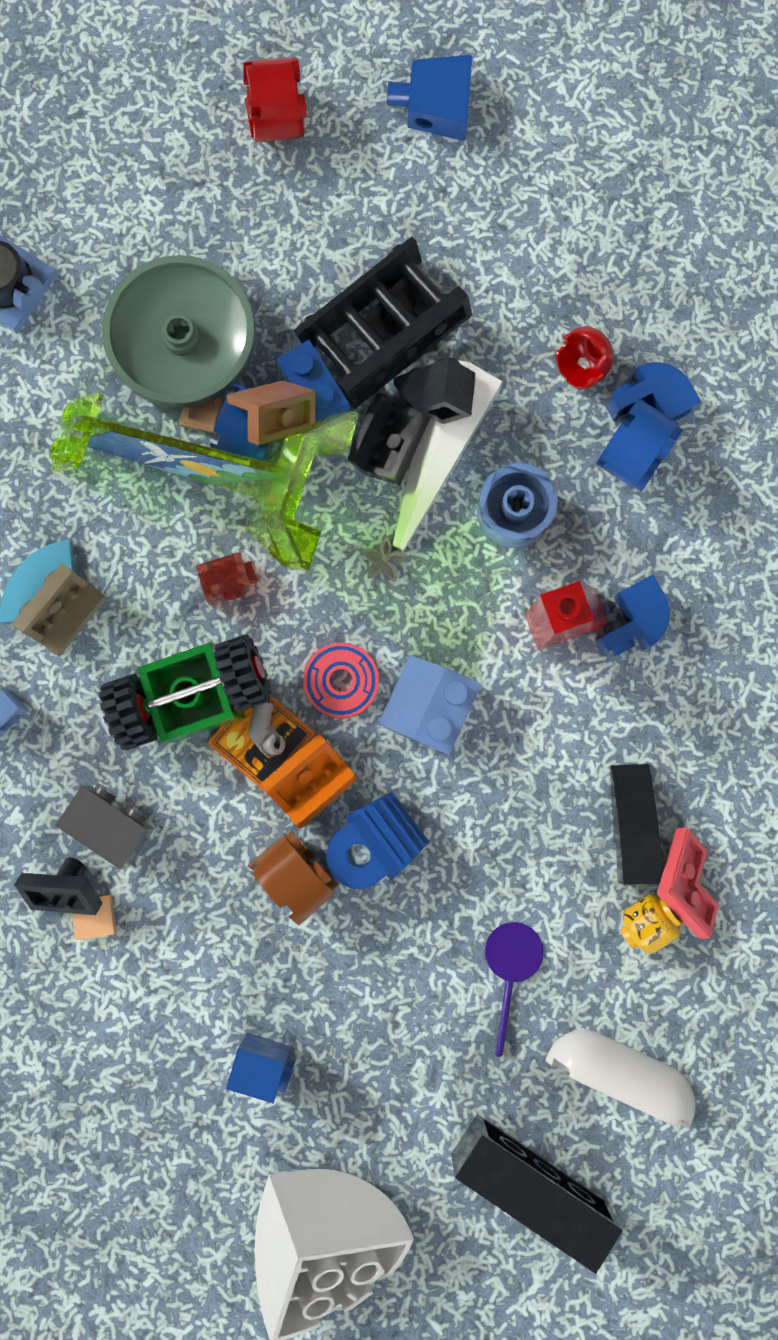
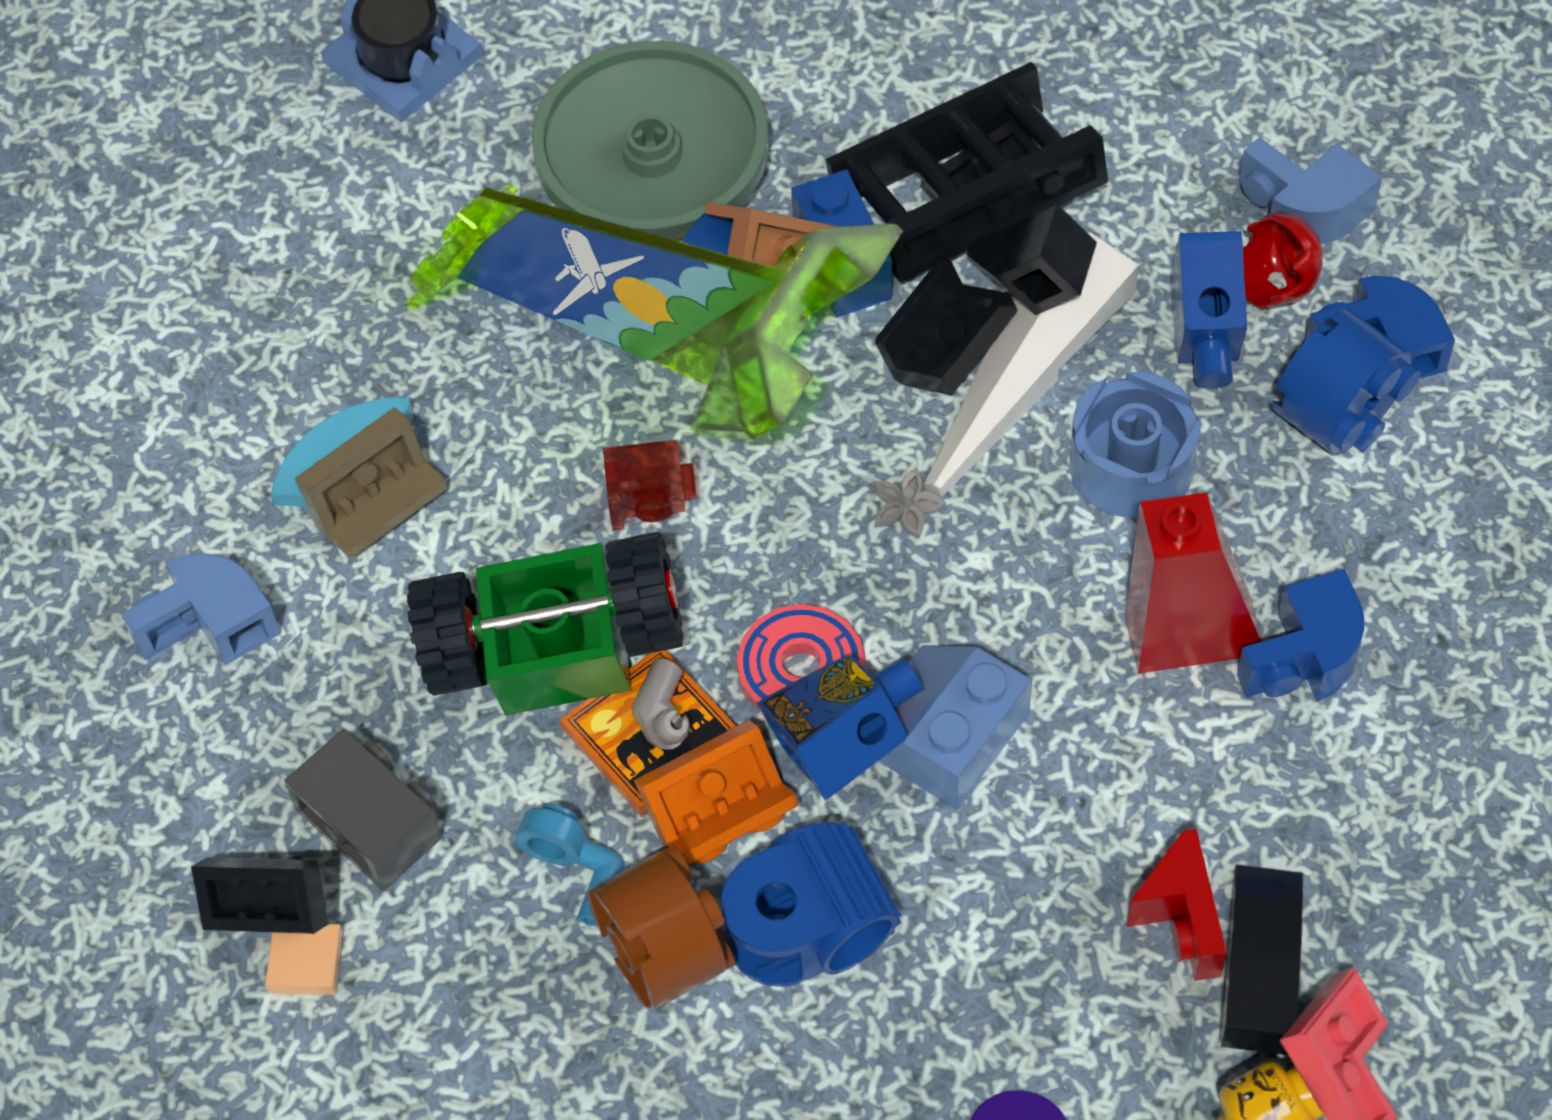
camera: 10 degrees right, 25 degrees down
(221, 819) = (558, 838): none -> dark azure plate
(372, 728) = (840, 719): none -> blue torso
(548, 384) = (1209, 304): none -> blue torso
(585, 791) = (1182, 891): none -> red slope
(599, 308) = (1329, 194): none -> medium blue brick

